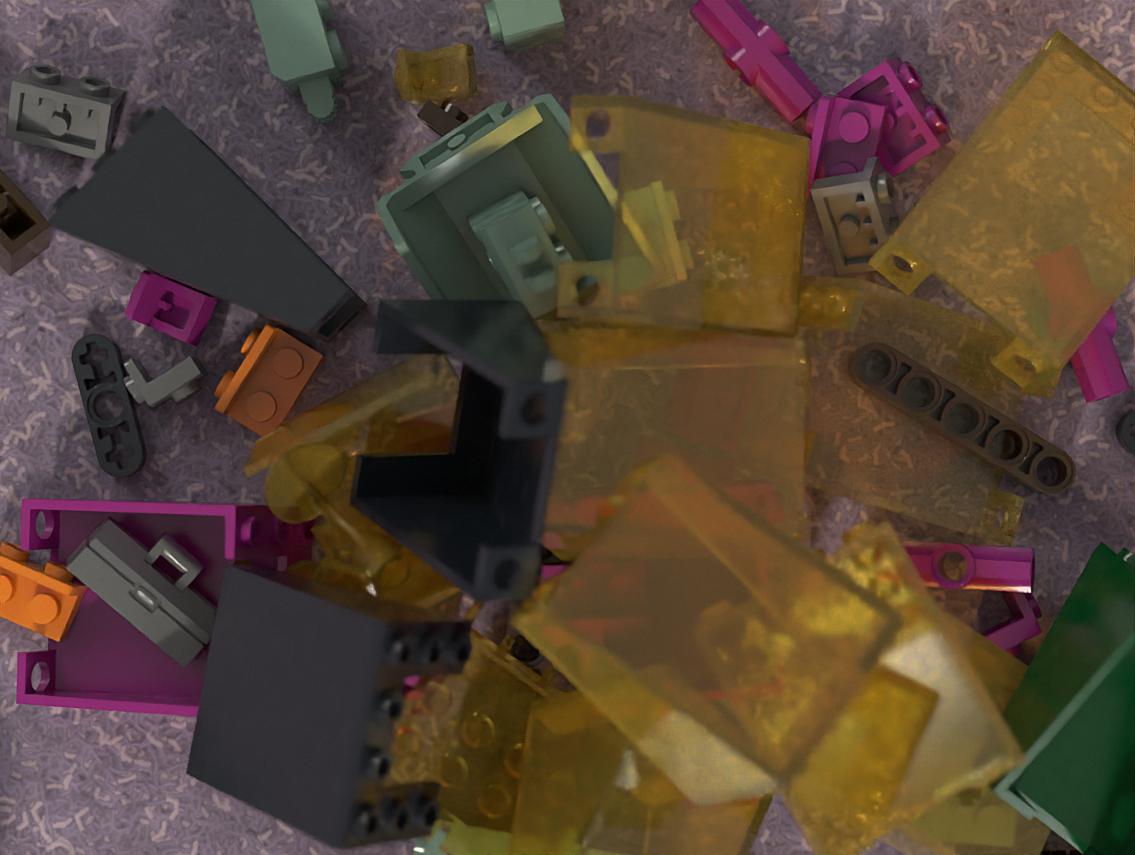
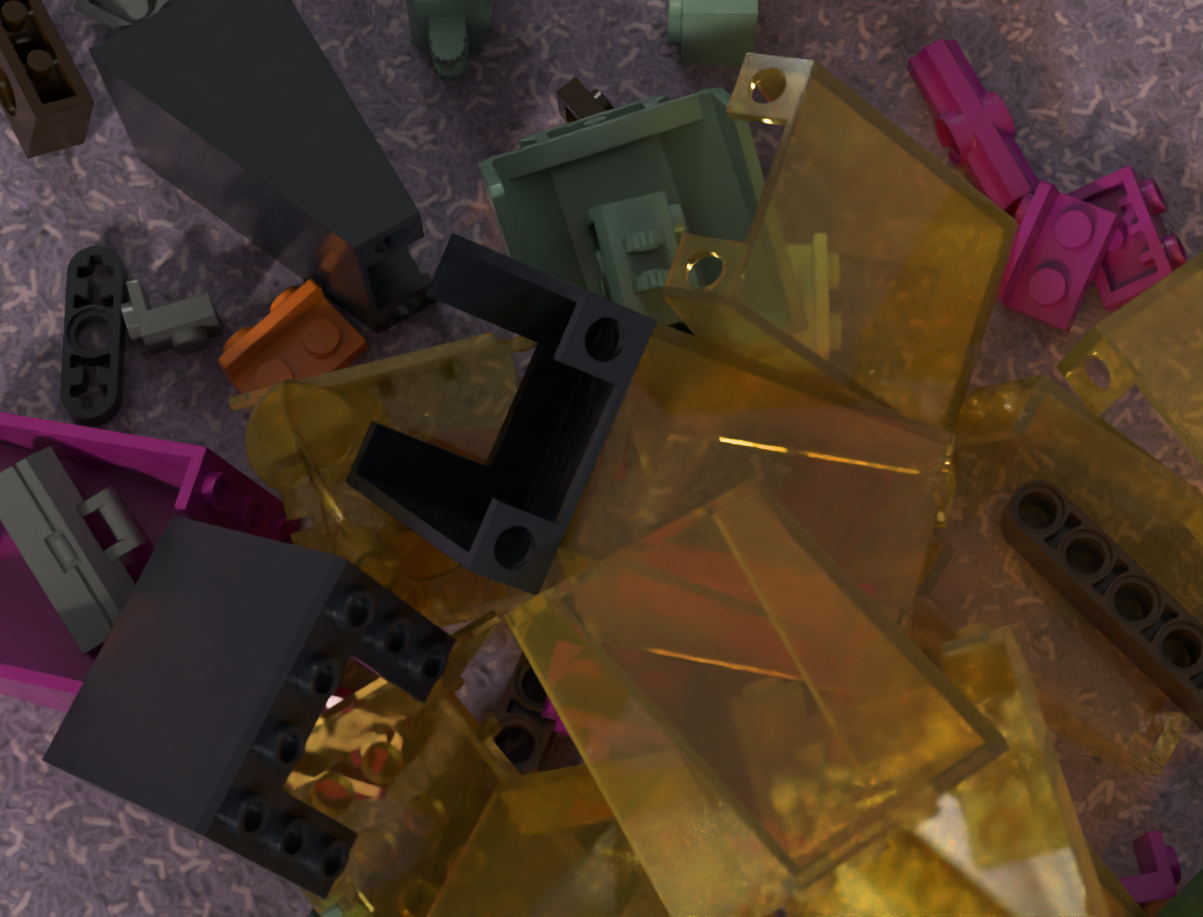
camera: 15 degrees right, 15 degrees down
(170, 308) = (201, 238): magenta bracket -> none
(436, 74) = (596, 58): clear yellow bracket -> none
(856, 215) = (1049, 320): dark grey bracket -> none
(988, 566) = (1127, 793): magenta piece -> none

